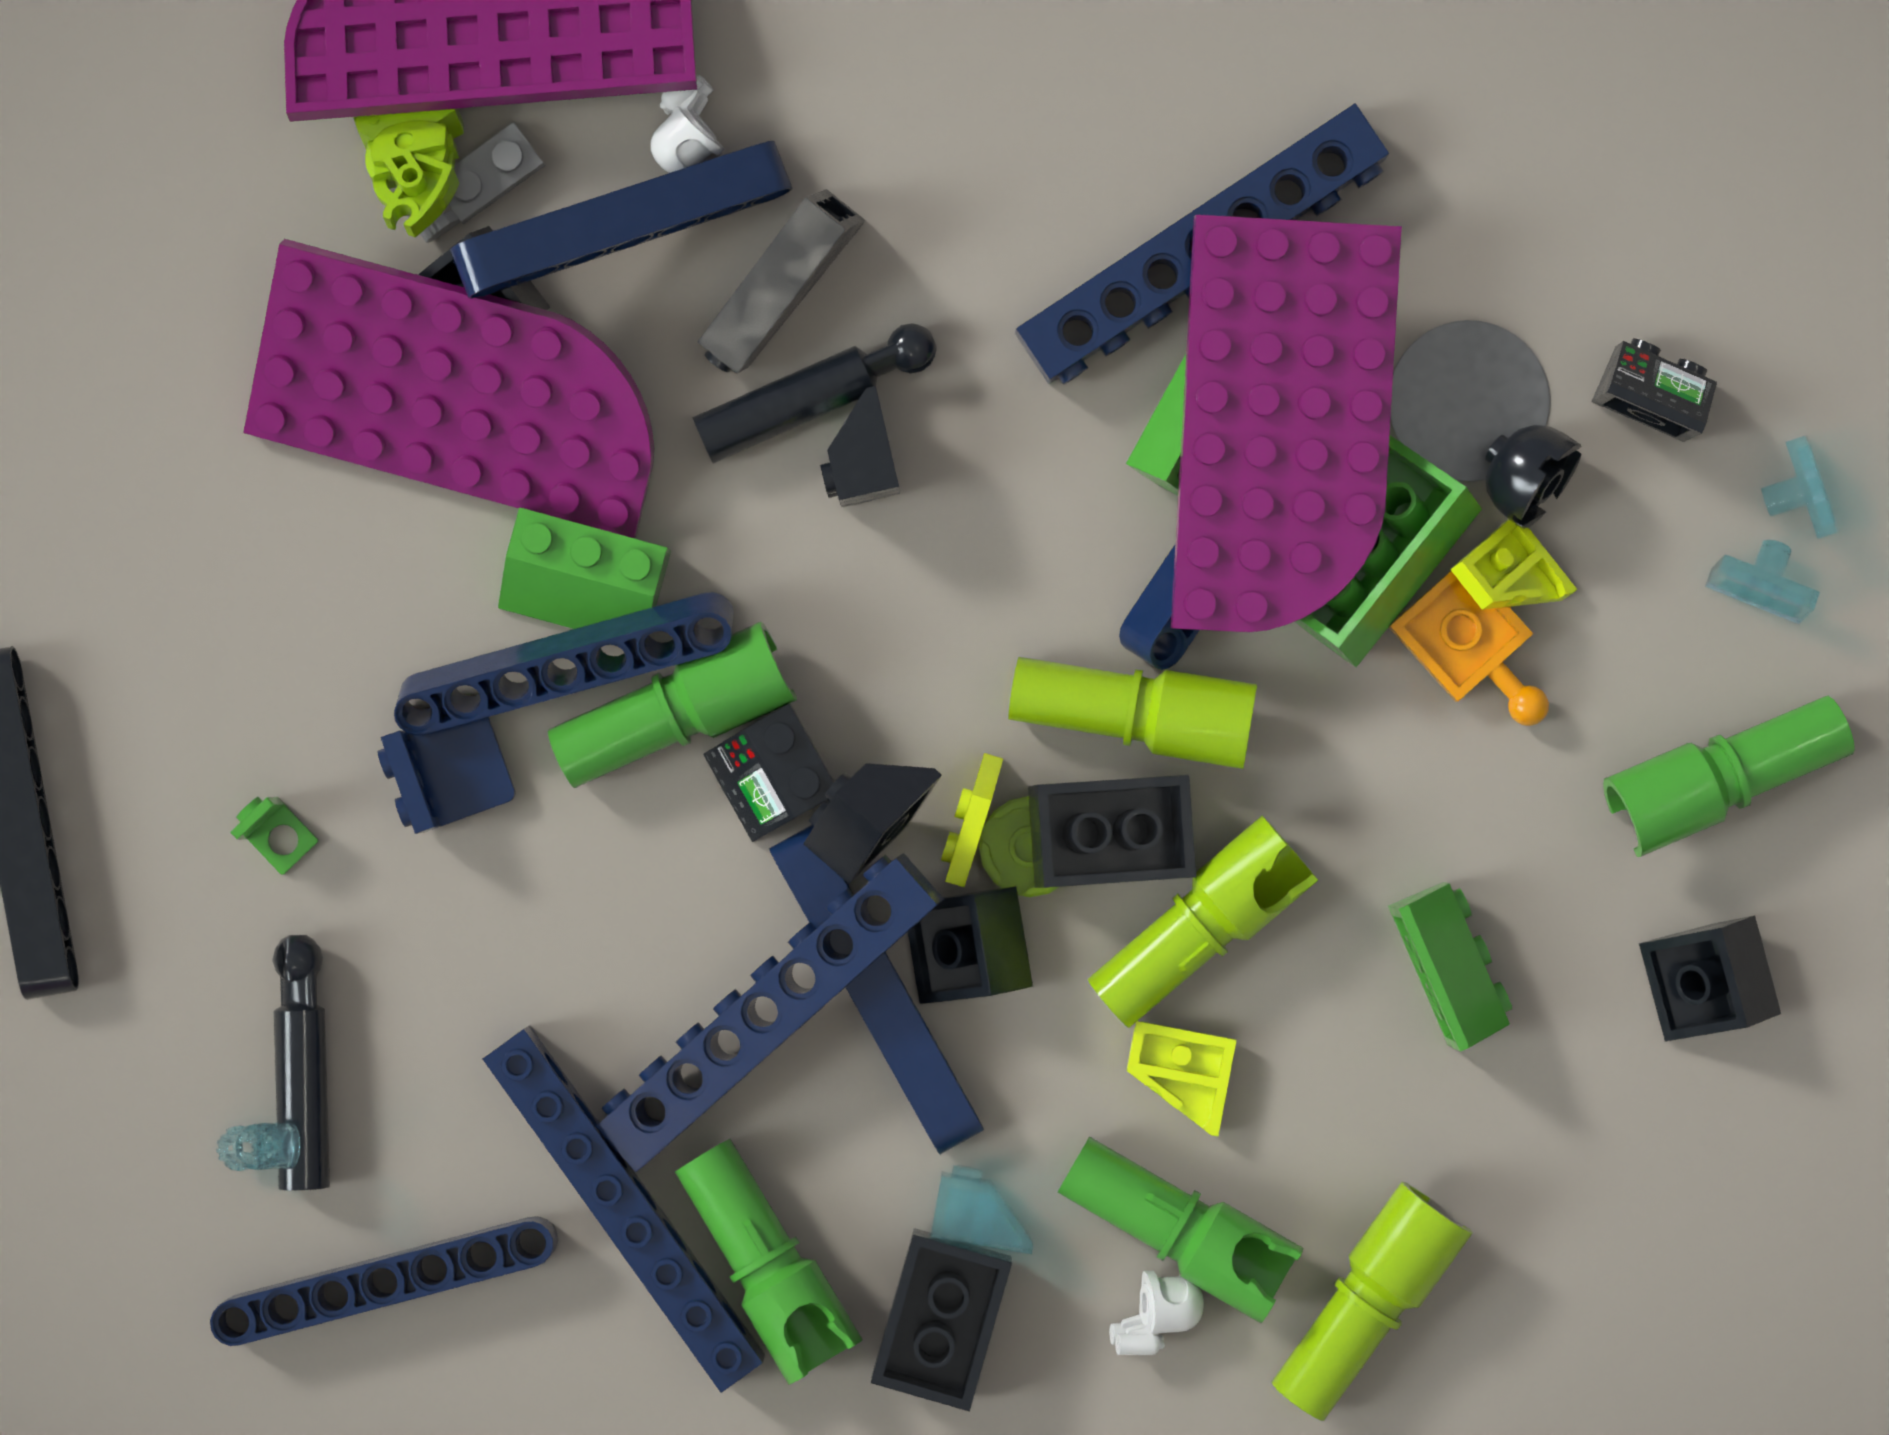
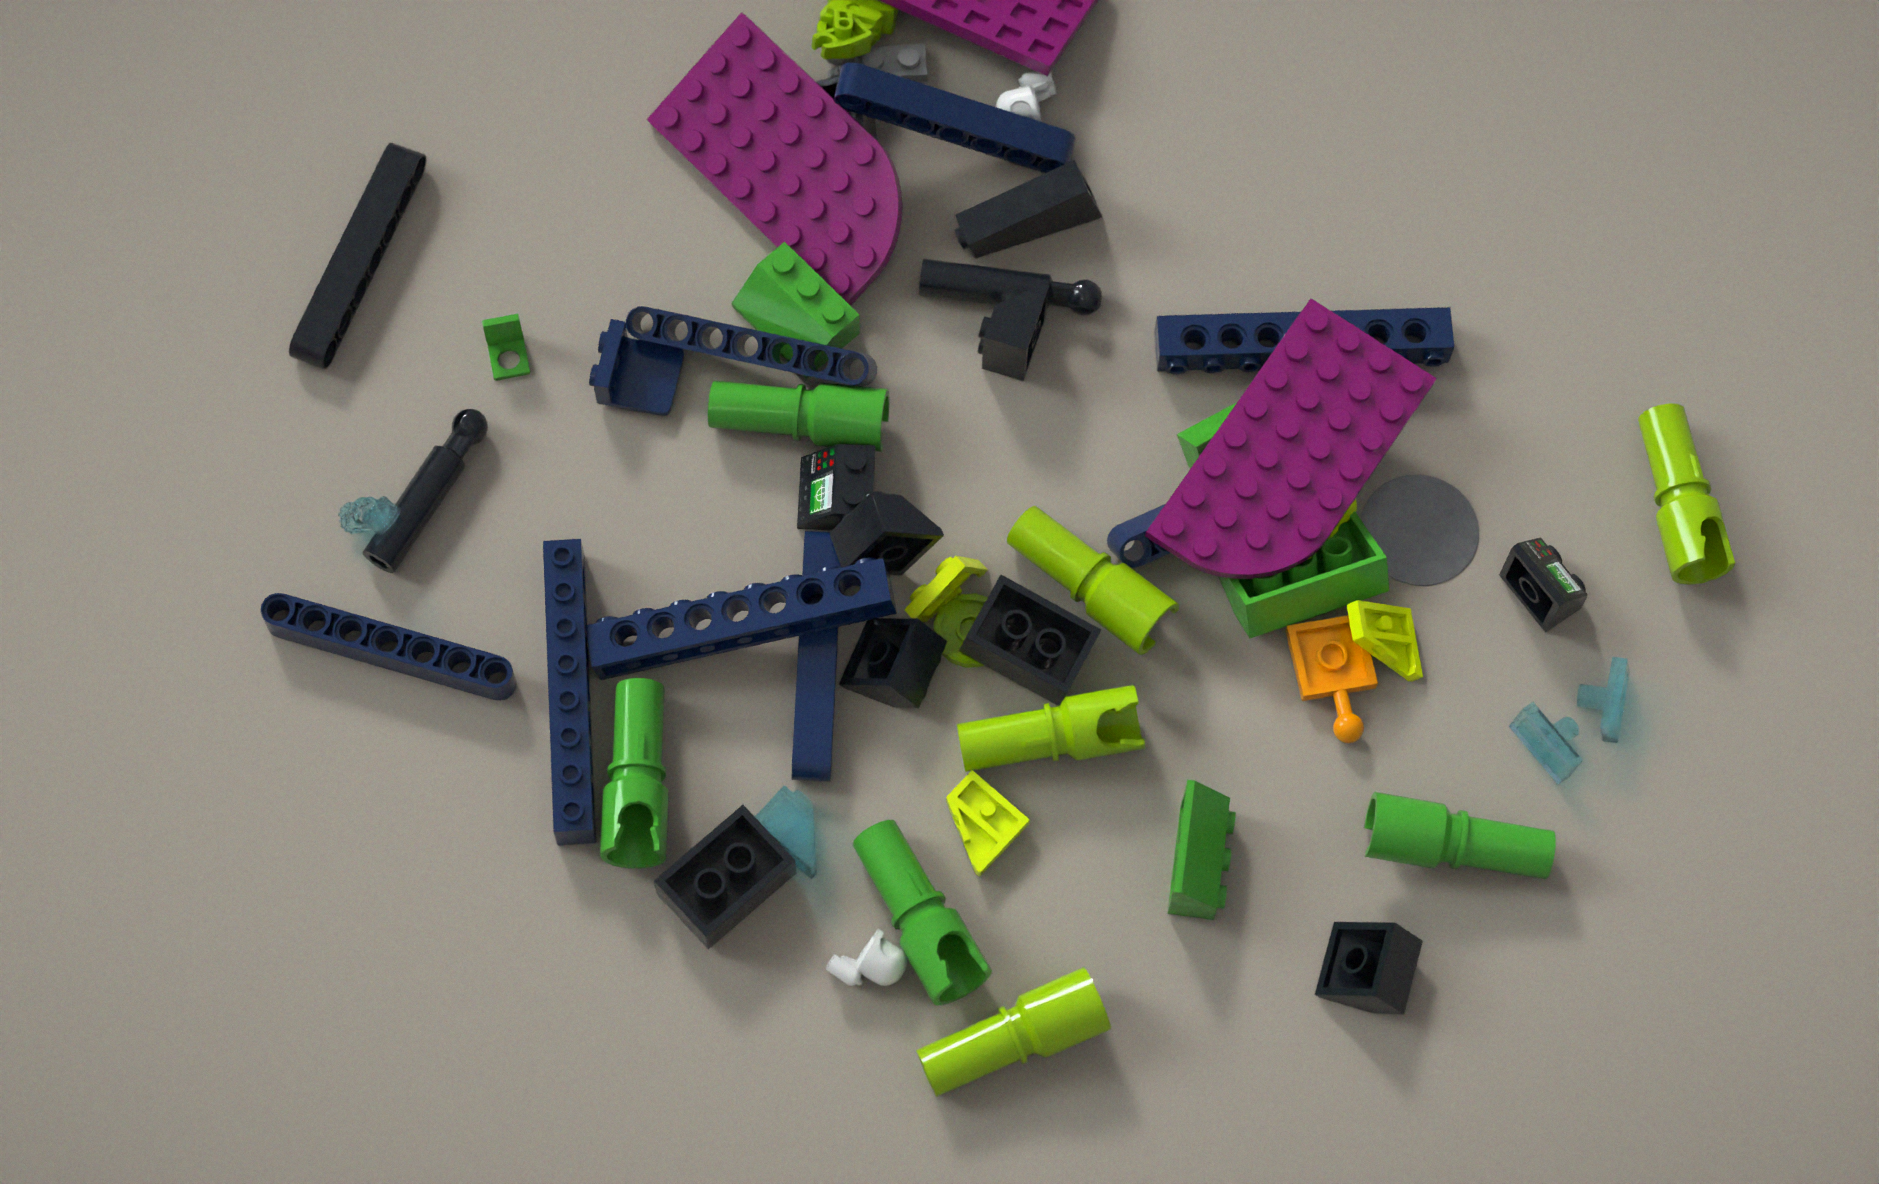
camera: 25 degrees right, 20 degrees down
(1529, 470) = (1434, 585): black cylinder -> none
(1778, 206) = (1688, 517): none -> lime piece

